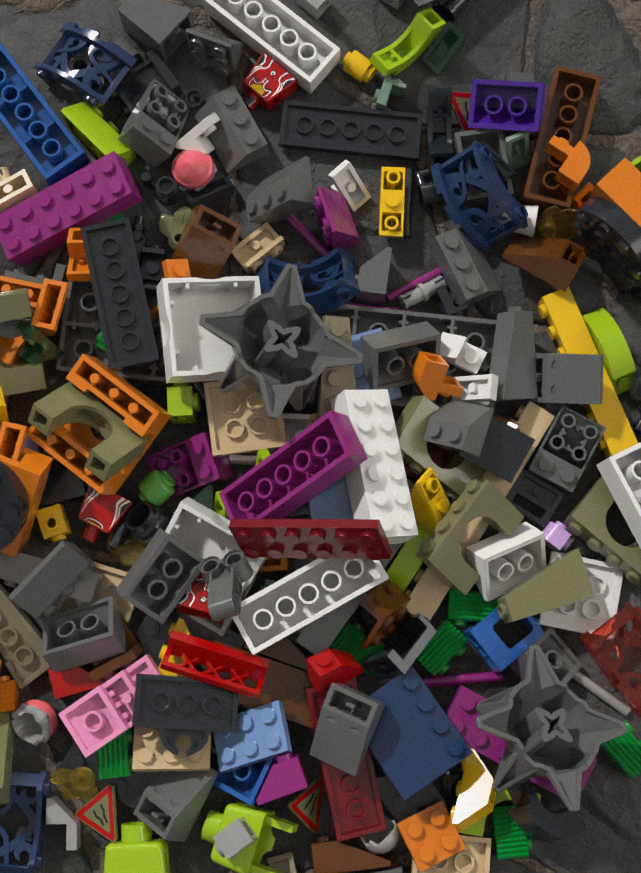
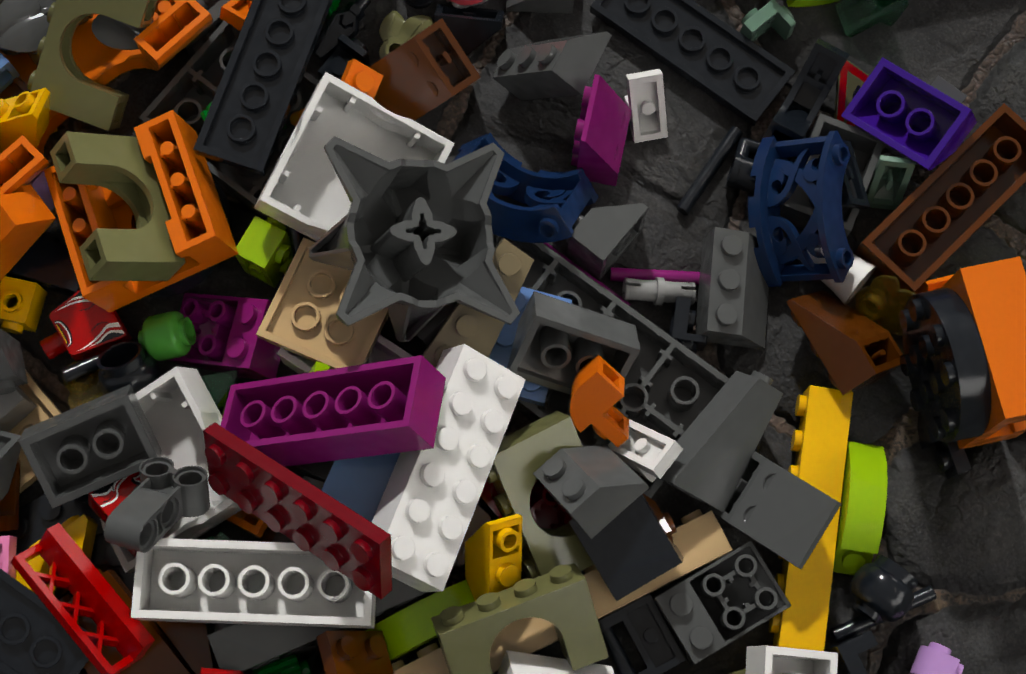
camera: 30 degrees right, 5 degrees down
(38, 346) = (131, 76): clear green slope -> none
(258, 247) = (483, 115): tan bracket -> none
(307, 235) = (557, 135): magenta bar -> none
(391, 202) = (687, 155): yellow slope -> none
(460, 353) = (655, 393): white slope -> none
(574, 160) = (955, 232): orange brick -> none

